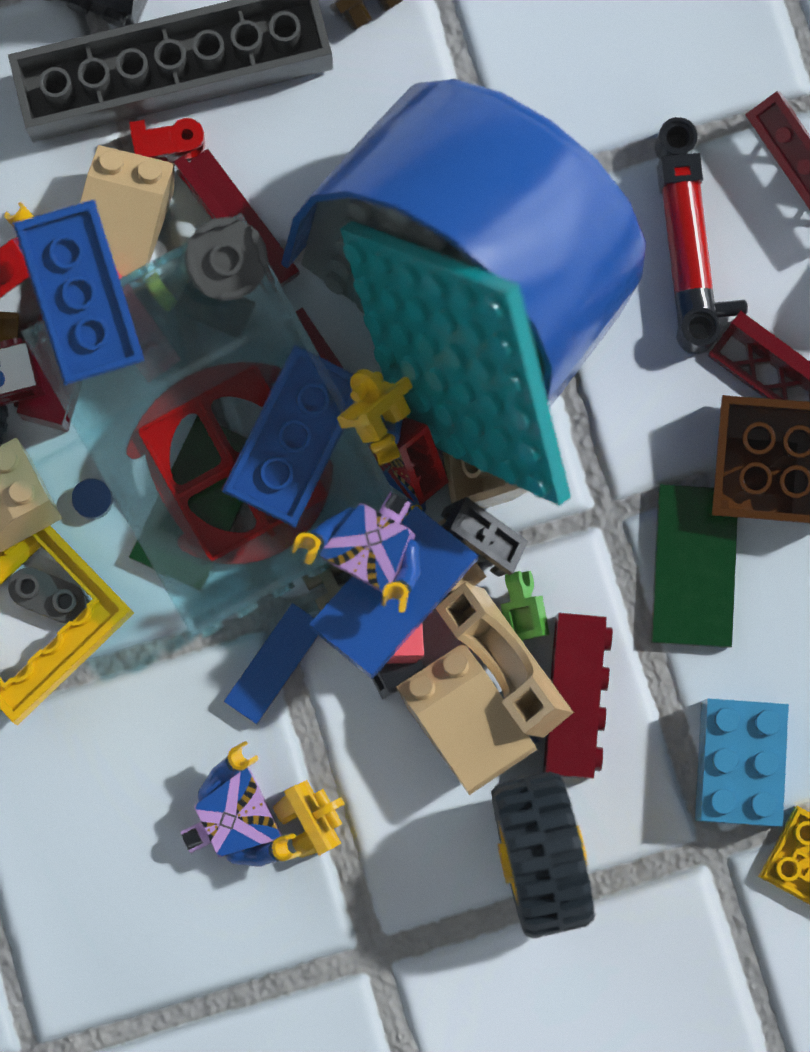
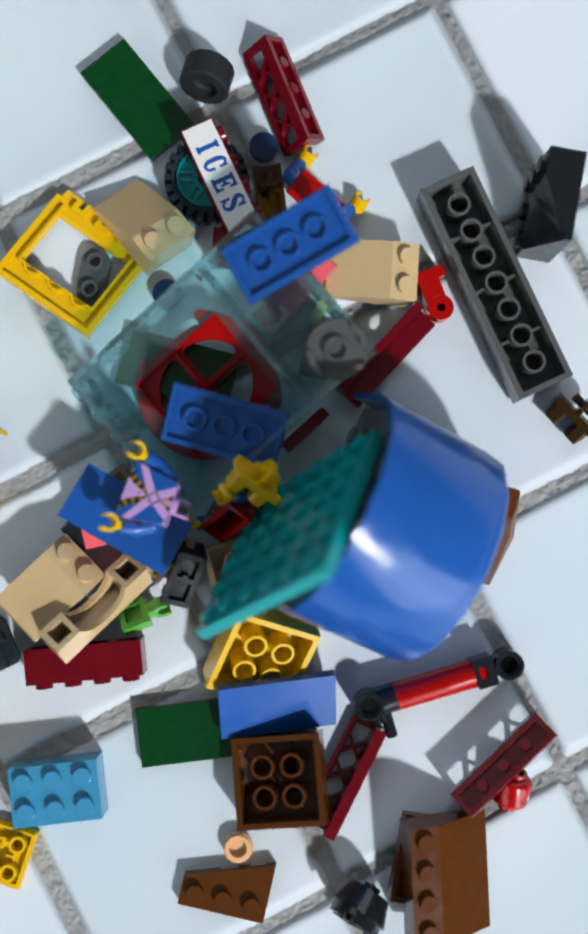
camera: 80 degrees right, 5 degrees up
(273, 665) = (73, 443): blue tile -> none
(612, 455) = (261, 648): none -> yellow slope
(677, 447) = (277, 704): none -> blue tile

